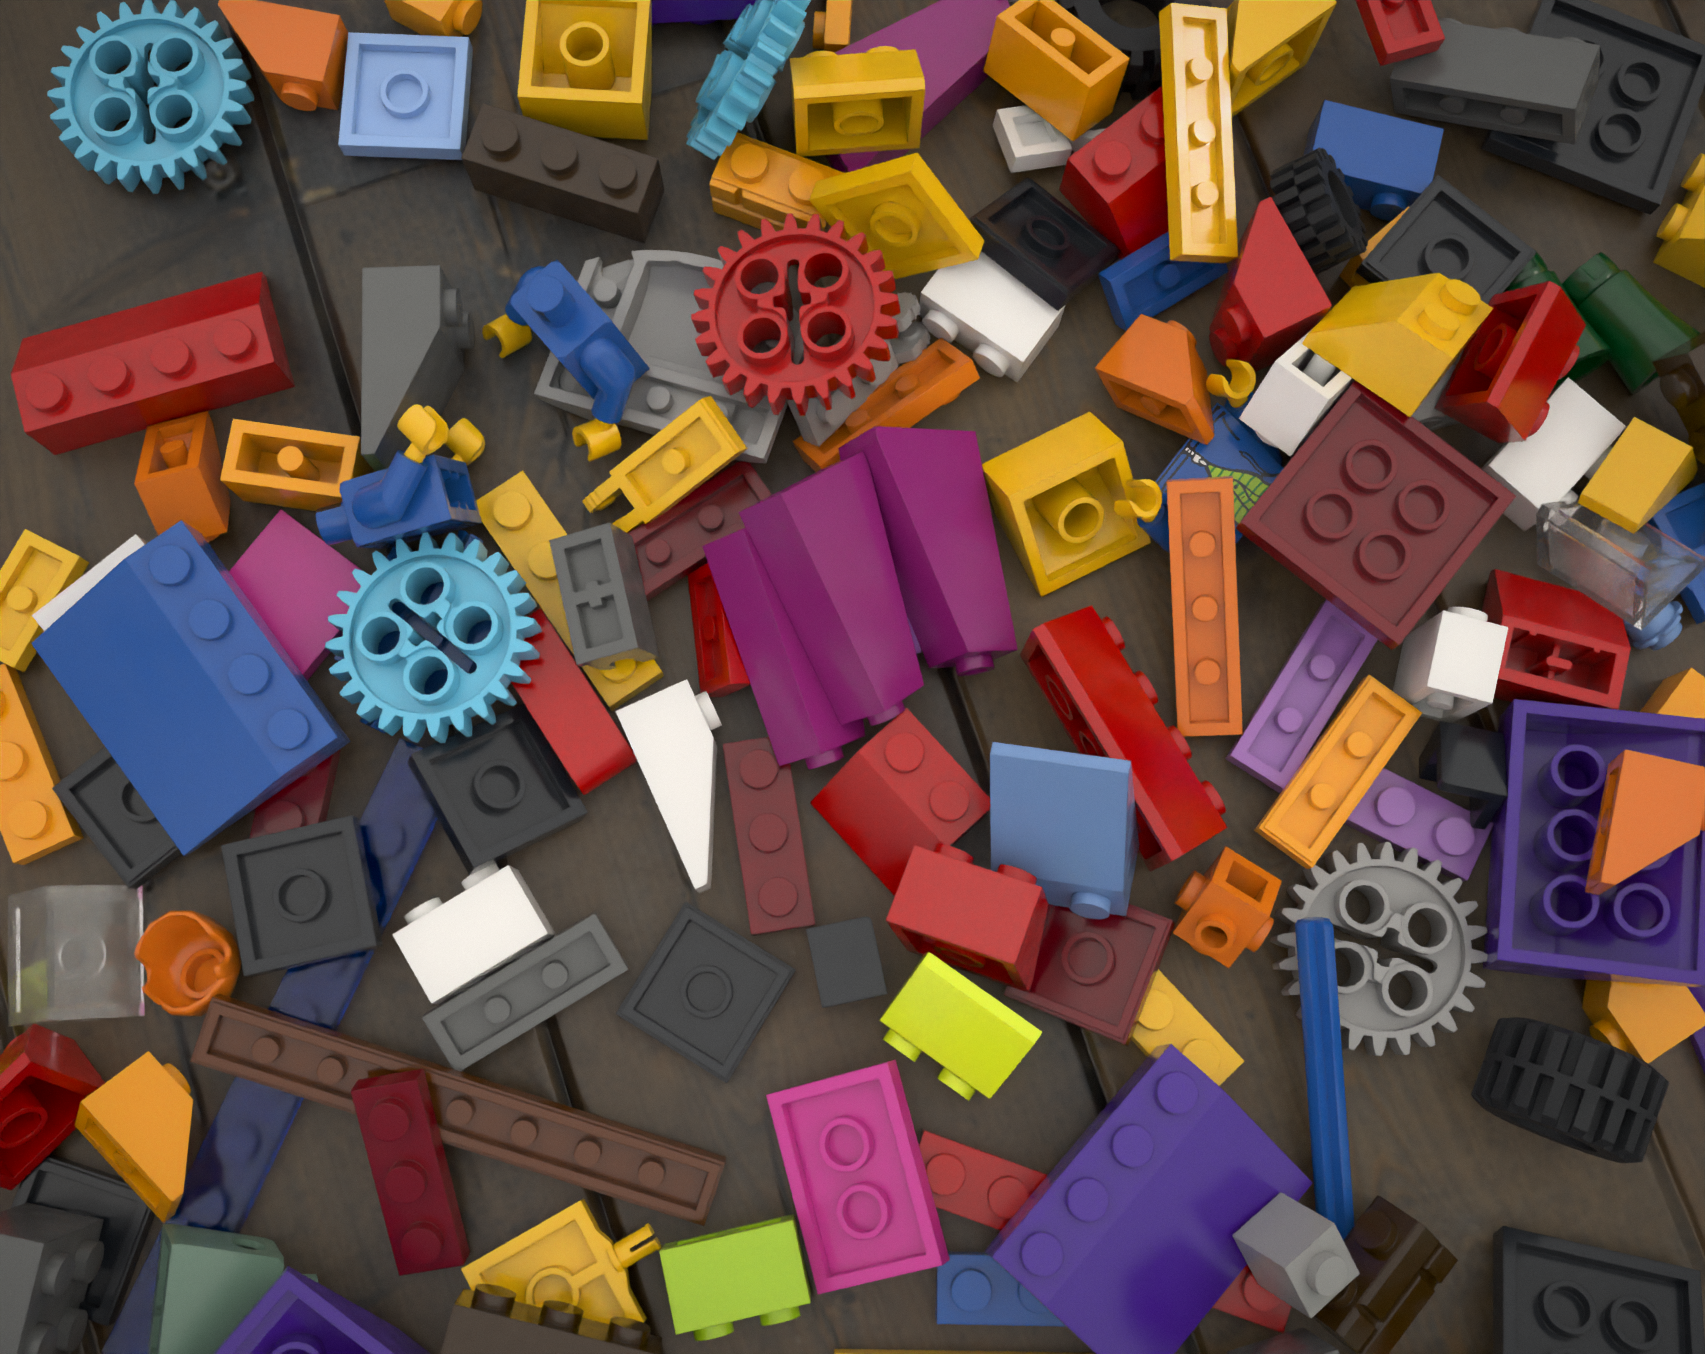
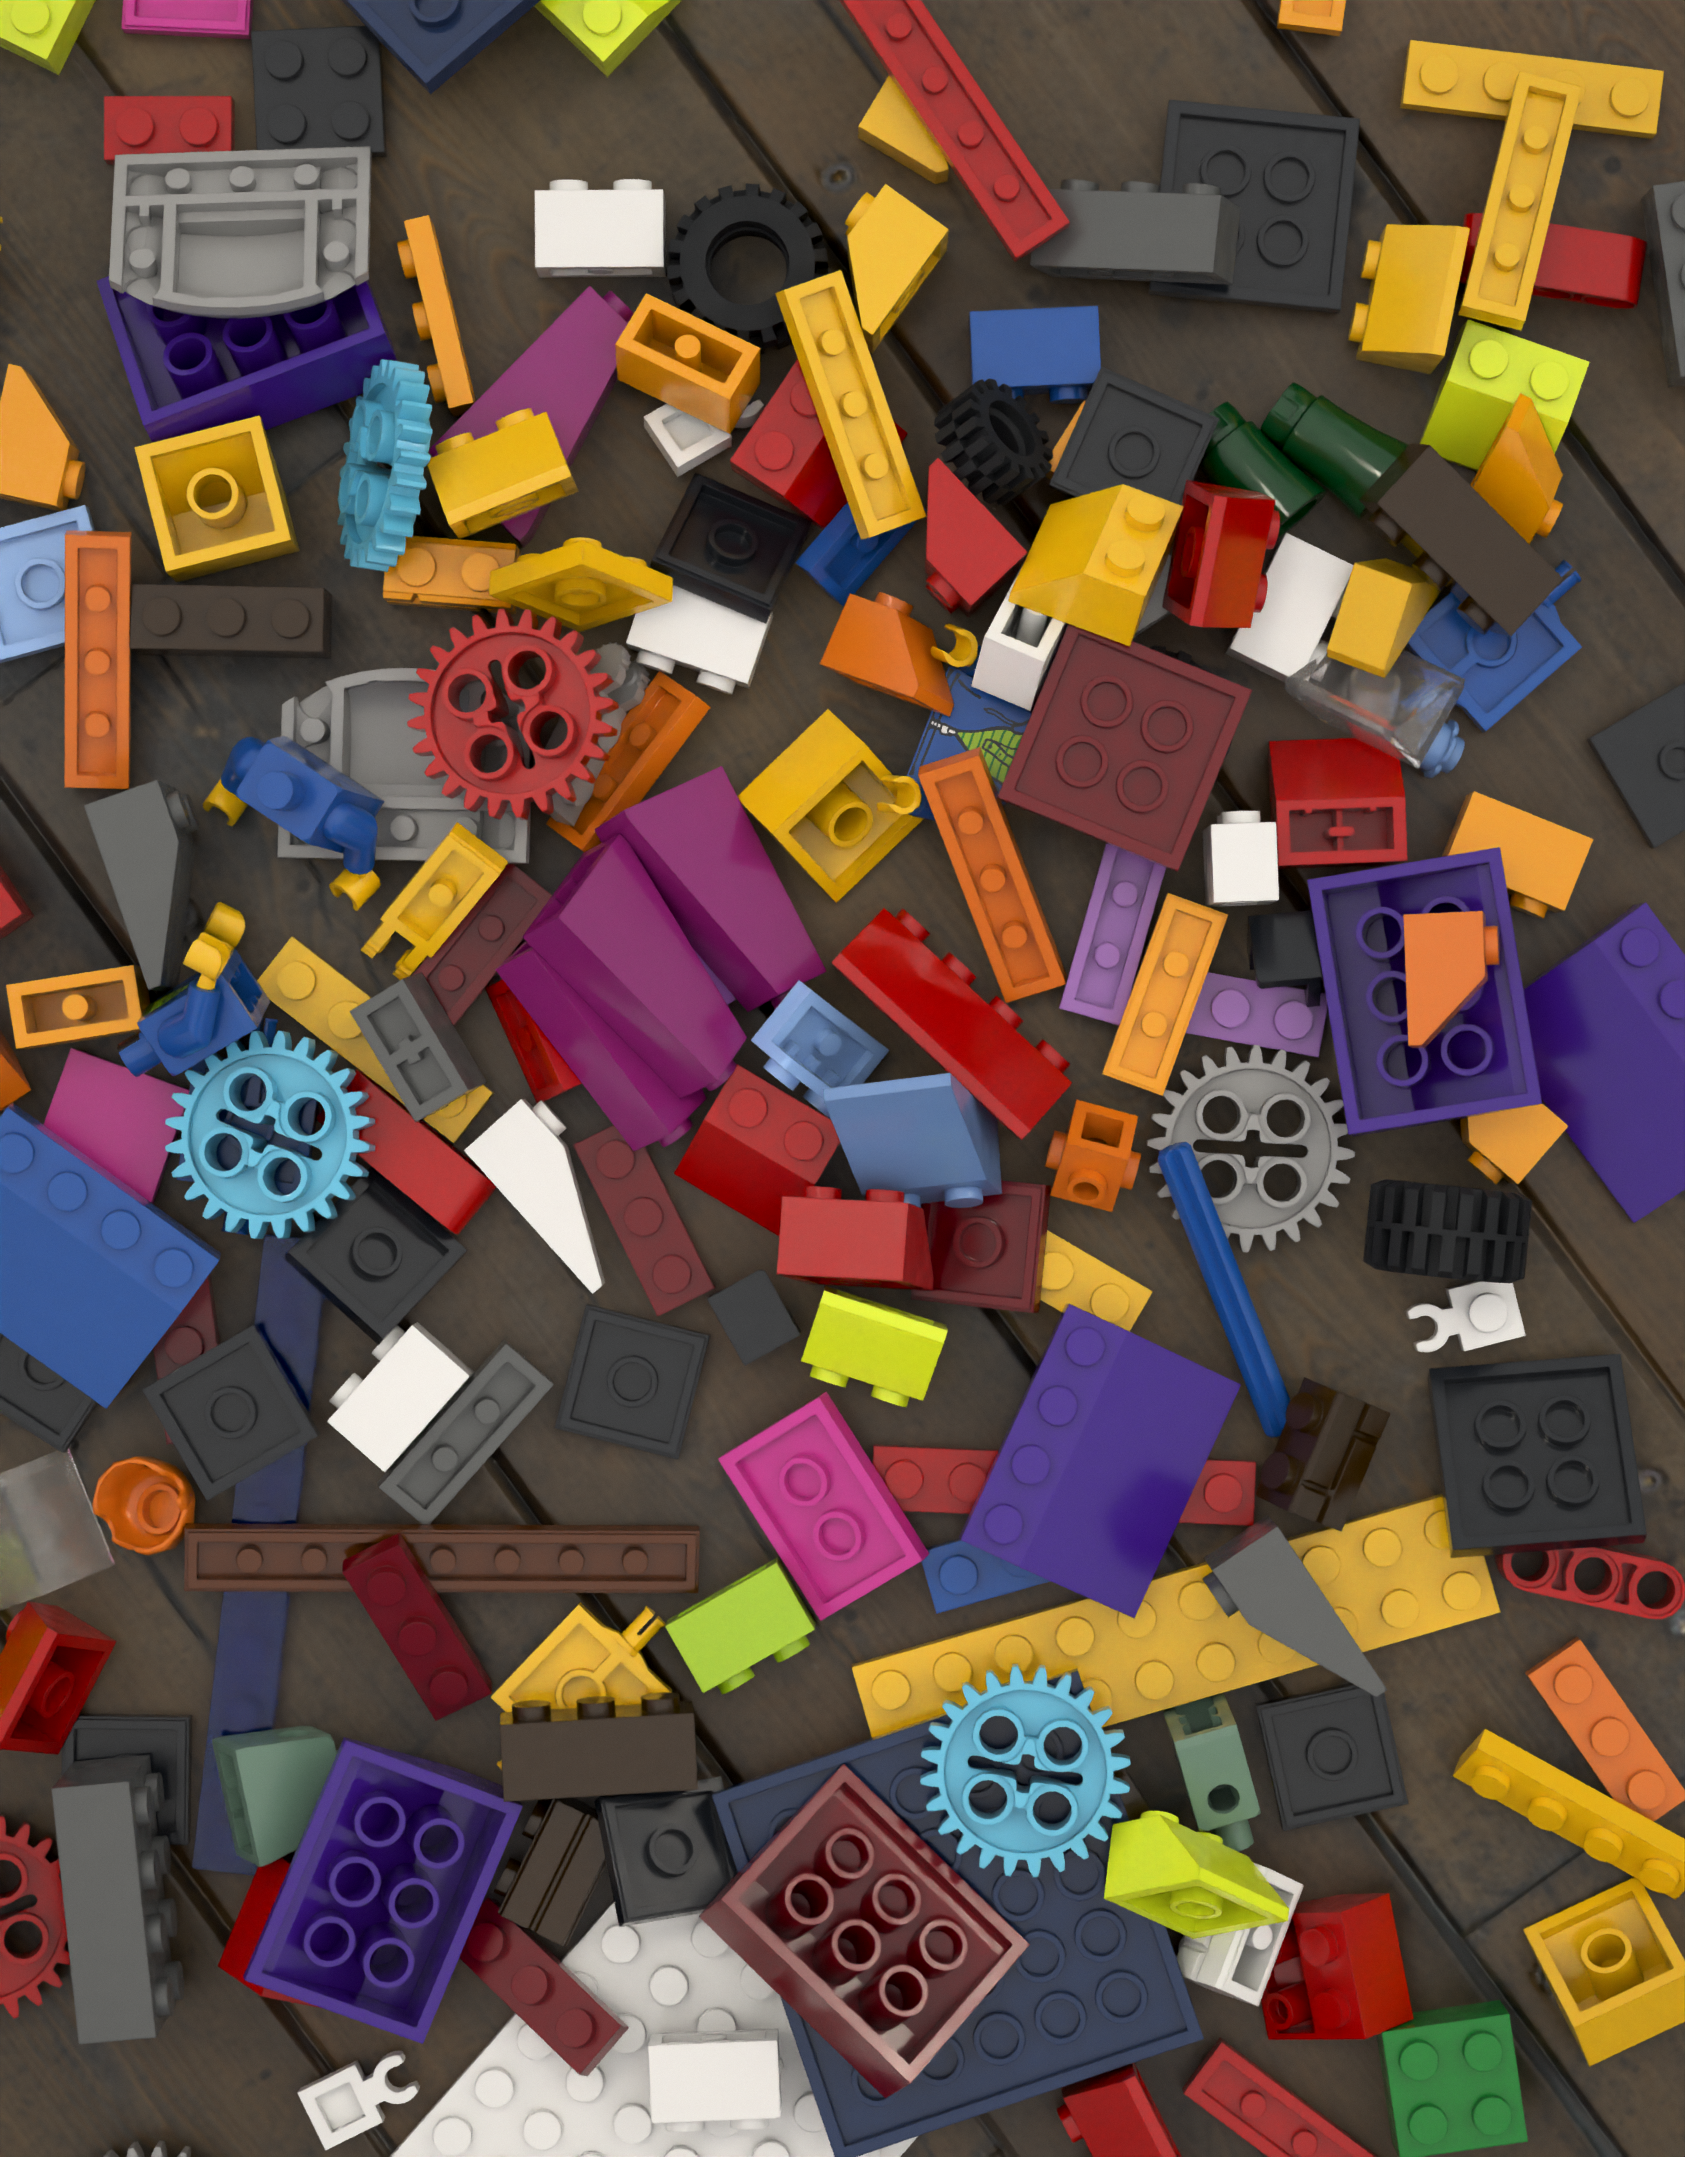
camera: 15 degrees left, 10 degrees up
(143, 1130) = (164, 1666): light orange slope -> none
(430, 155) = (97, 659): none -> orange plate
(984, 706) = (816, 1046): none -> light blue bracket
(1296, 1254) = (1235, 1454): light grey brick -> none
(1559, 1183) = (1477, 1313): none -> white plate

